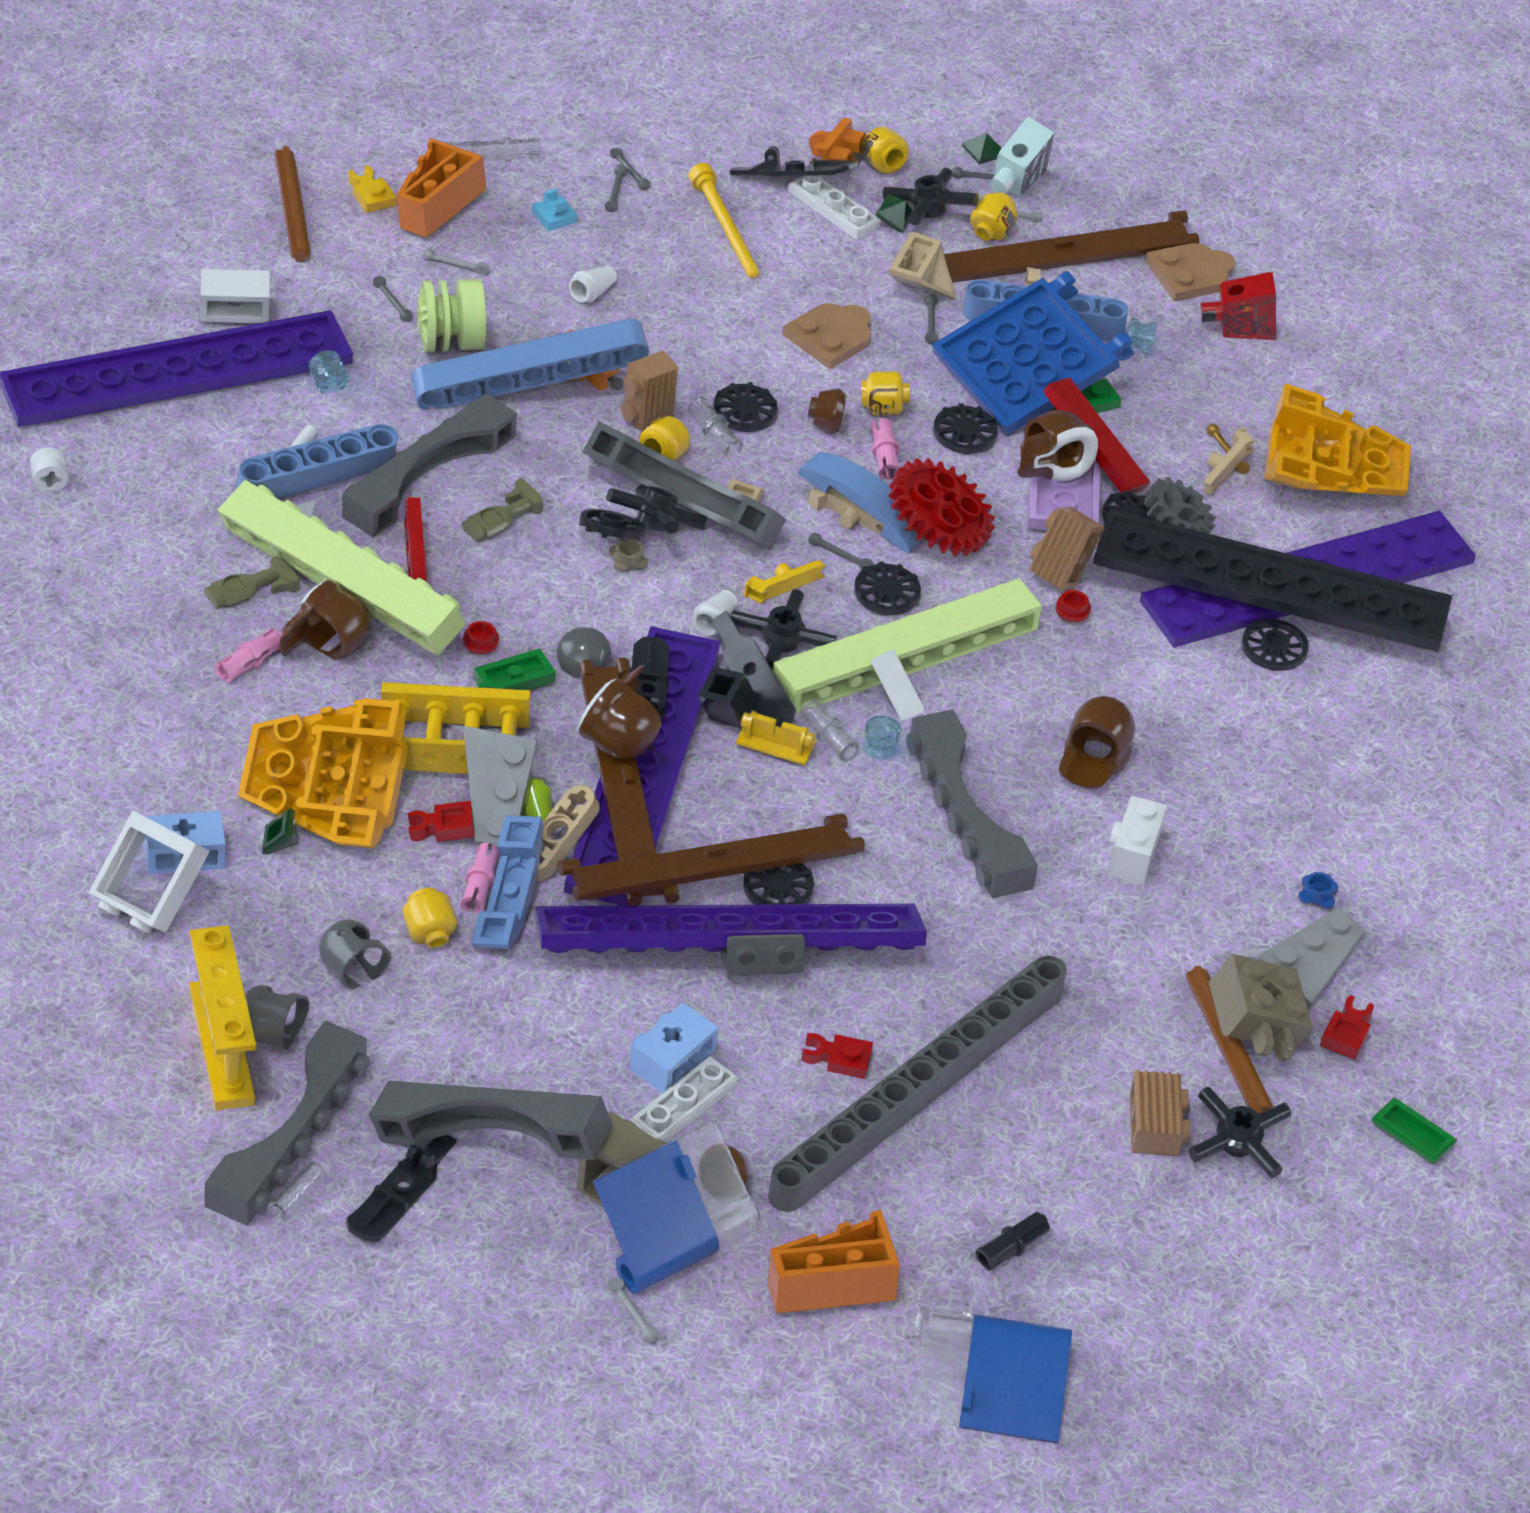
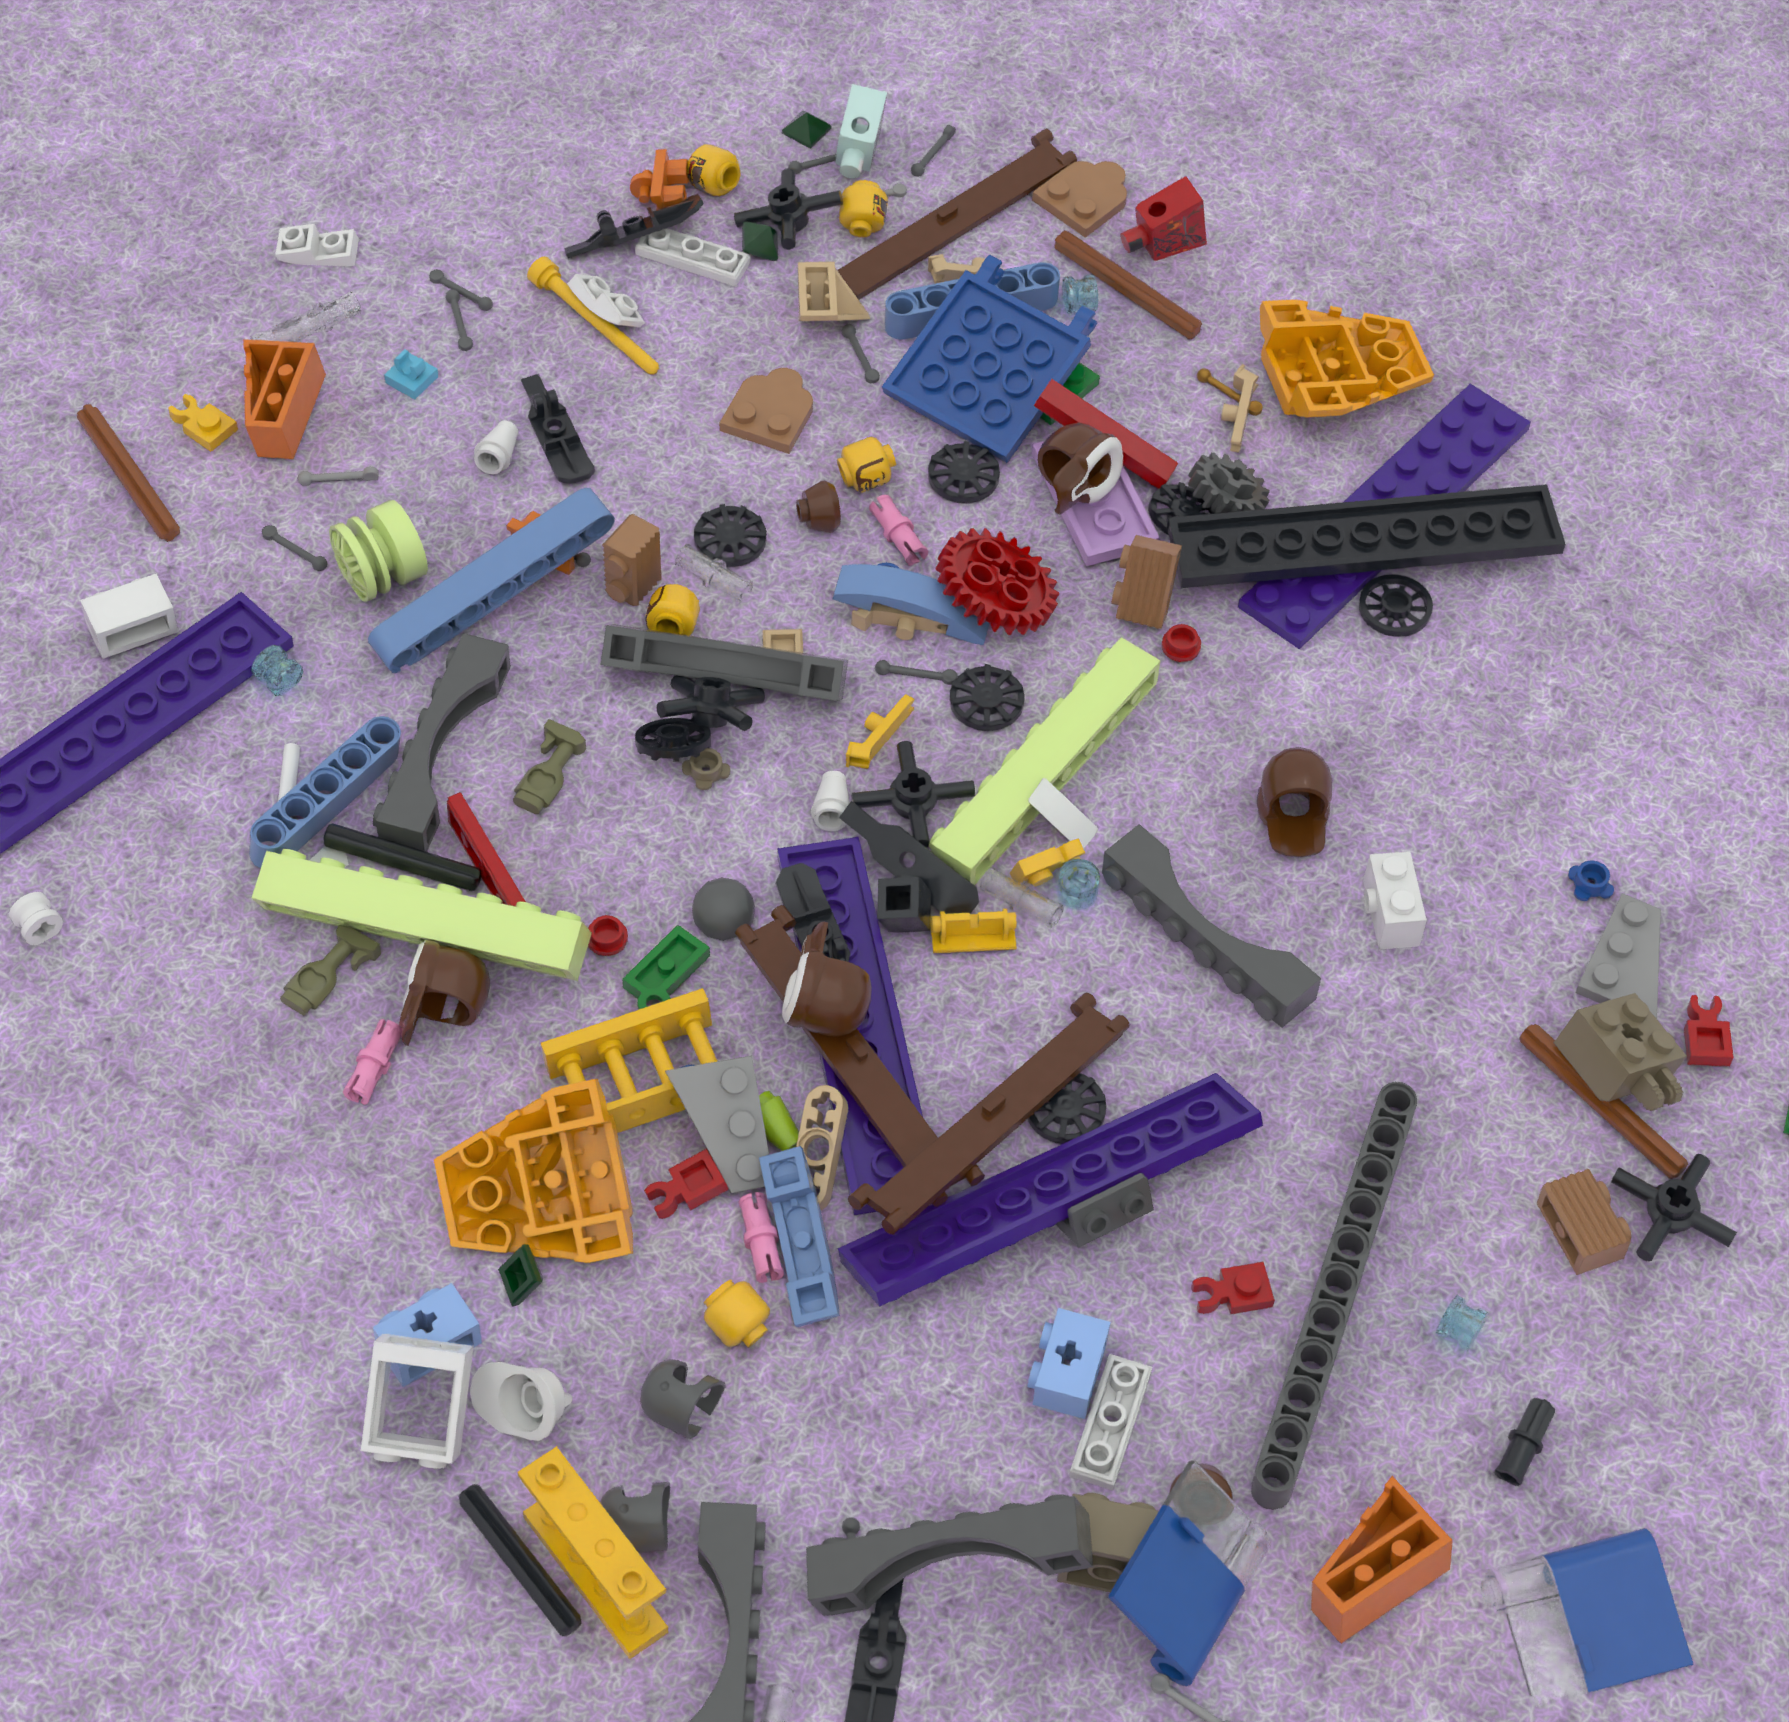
camera: 20 degrees left, 10 degrees up
(169, 1013) = (520, 1560): none -> black axle
(231, 902) = (518, 1399): none -> white piece
(343, 522) = (402, 857): none -> black axle
(525, 98) = (307, 247): none -> white slope
(648, 303) = (560, 446): none -> black piece
(736, 208) = (610, 306): none -> white slope
(857, 711) = (1039, 867): none -> yellow plate
(1010, 1142) = (1462, 1323): none -> clear light blue wheel
(1102, 189) = (919, 168): none -> dark grey hinge
(1187, 345) = (1128, 285): none -> dark orange axle

